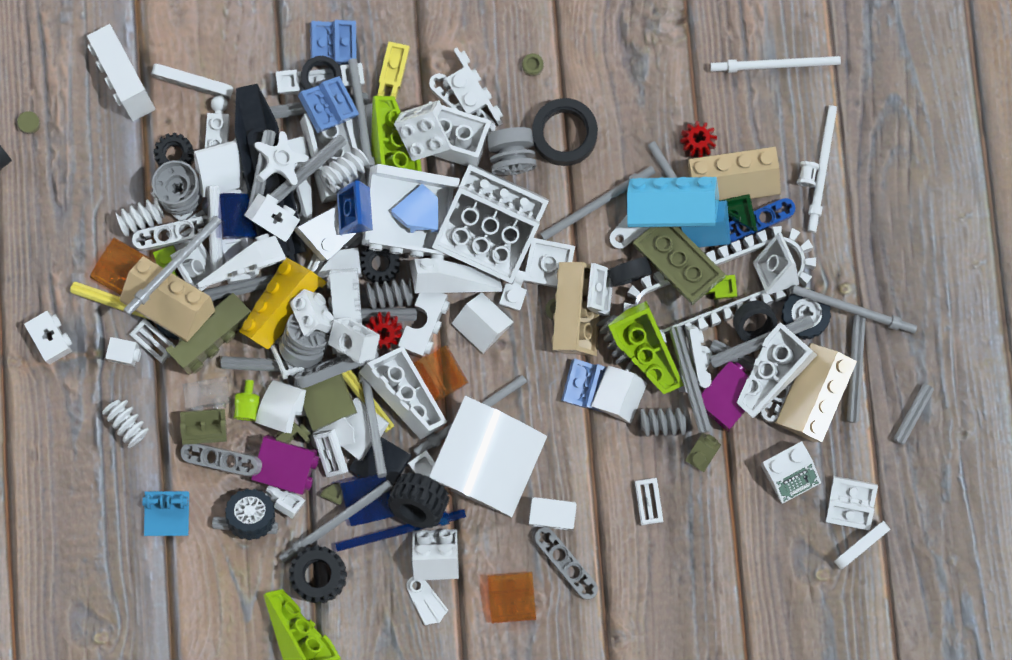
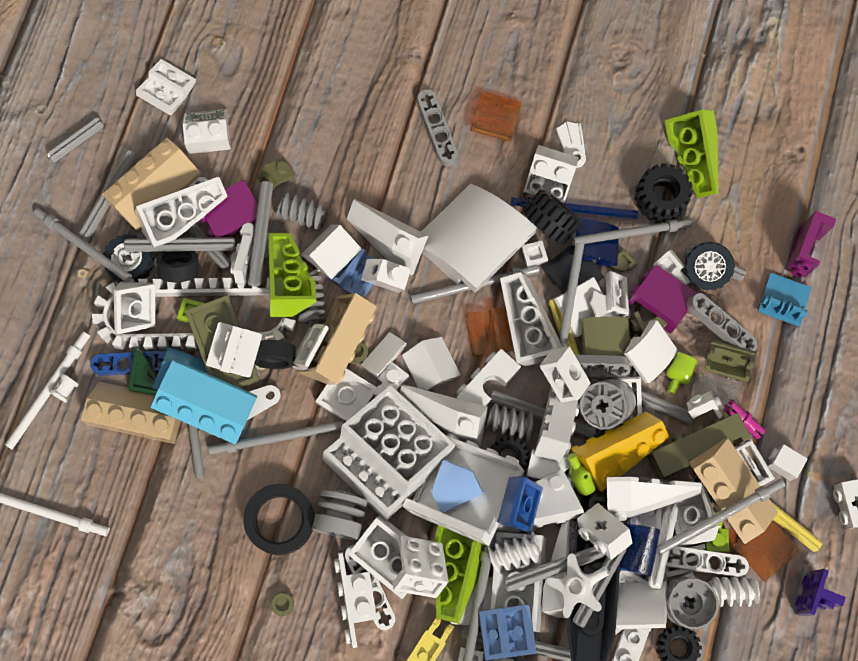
camera: 170 degrees left, 5 degrees down
(64, 238) = (815, 595): none -> dark purple bracket
(125, 422) = (801, 393): white piece -> none
(164, 571) = (815, 227): none -> magenta panel
(173, 376) = (749, 422): none -> dark pink pin
(214, 374) = (703, 403): none -> white bracket
(308, 261) = (580, 476): none -> lime piece
(311, 312) = (596, 418): white bracket -> none
(392, 332) = (528, 388): red gear -> none
(530, 315) = (383, 355): none -> white slope
(551, 384) = (388, 275): none -> white torso
(552, 514) = (434, 167): white panel -> none
(566, 428) = (389, 236): none -> white wedge
(651, 520) = (339, 169): white tile -> none
(664, 255) = (234, 349): none -> white bracket
(693, 133) = (143, 461): red gear -> none
(863, 544) = (173, 48): white beam -> none

